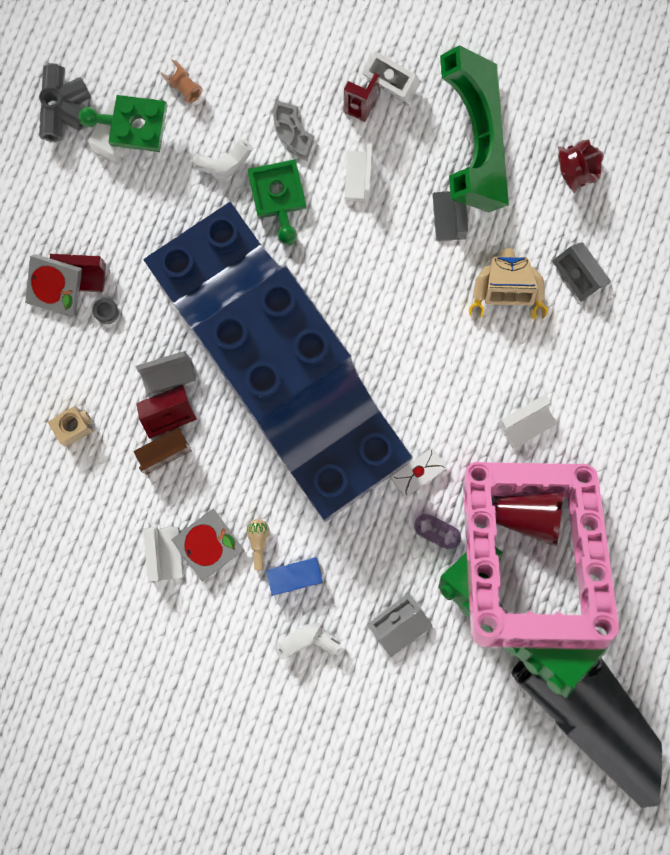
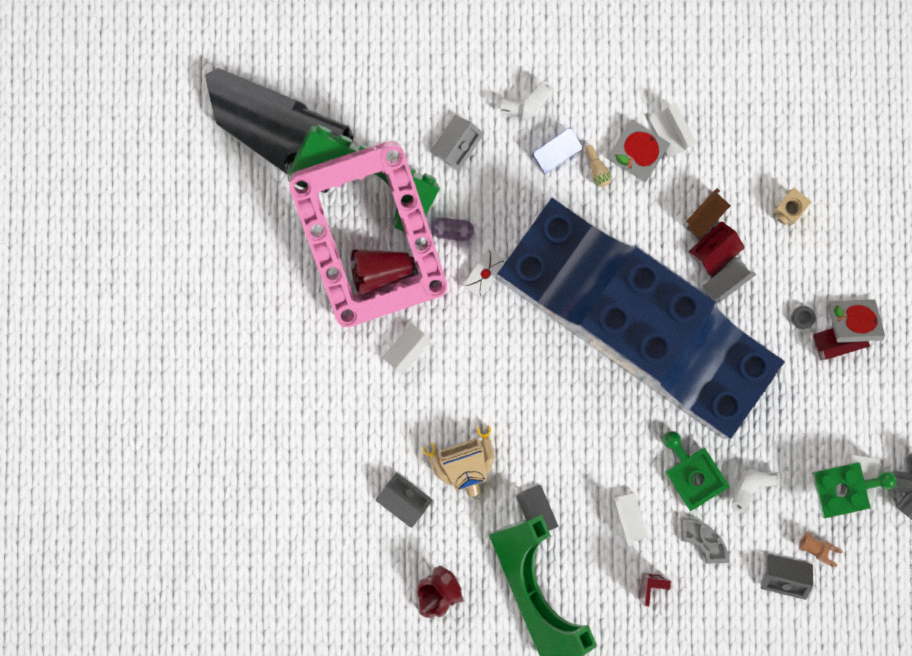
camera: 160 degrees right, 5 degrees up
(222, 67) = (788, 577): none -> dark grey panel
(393, 77) = (633, 617): white brick -> none

